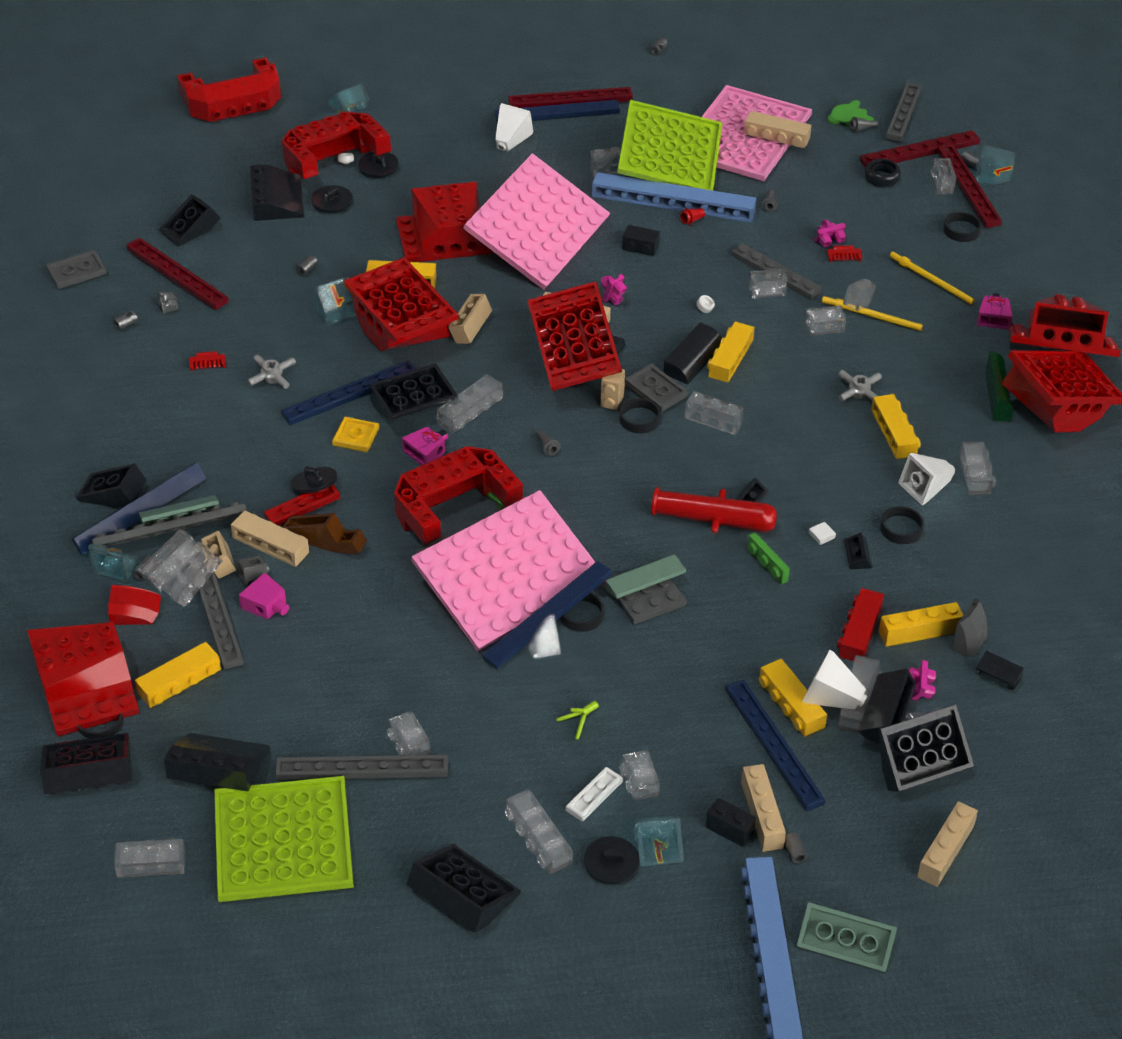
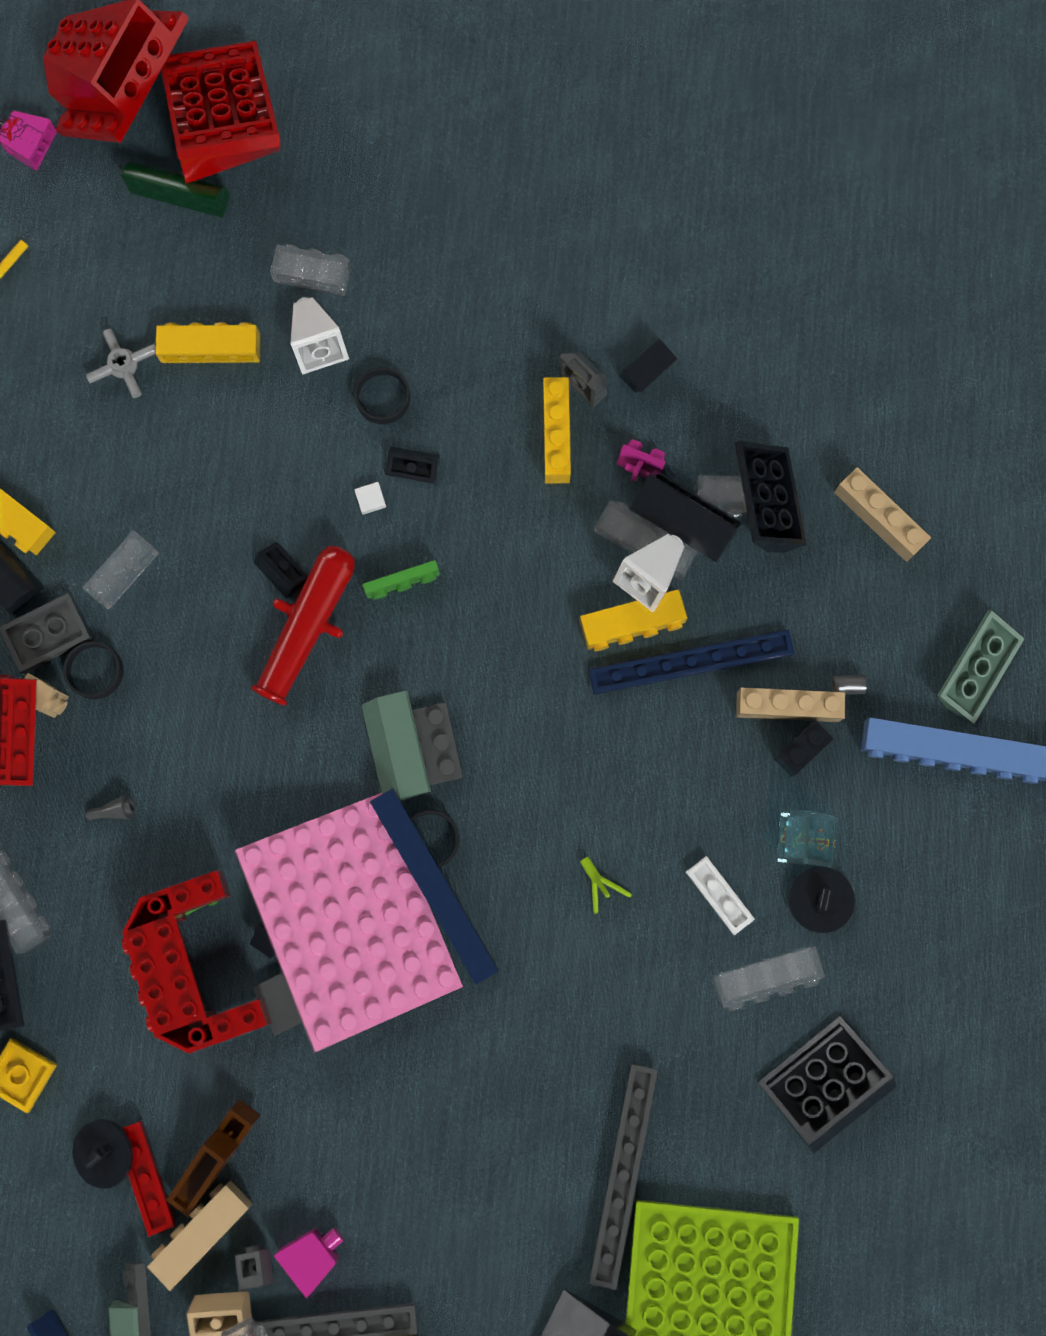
camera: 75 degrees left, 35 degrees up
(408, 735) = (590, 1108): clear brick -> none
(425, 445) = (76, 981): dark pink torso -> none
(545, 639) = (480, 900): clear slope -> none
(640, 775) = (711, 835): clear brick -> none
(861, 624) = (539, 501): red brick -> none

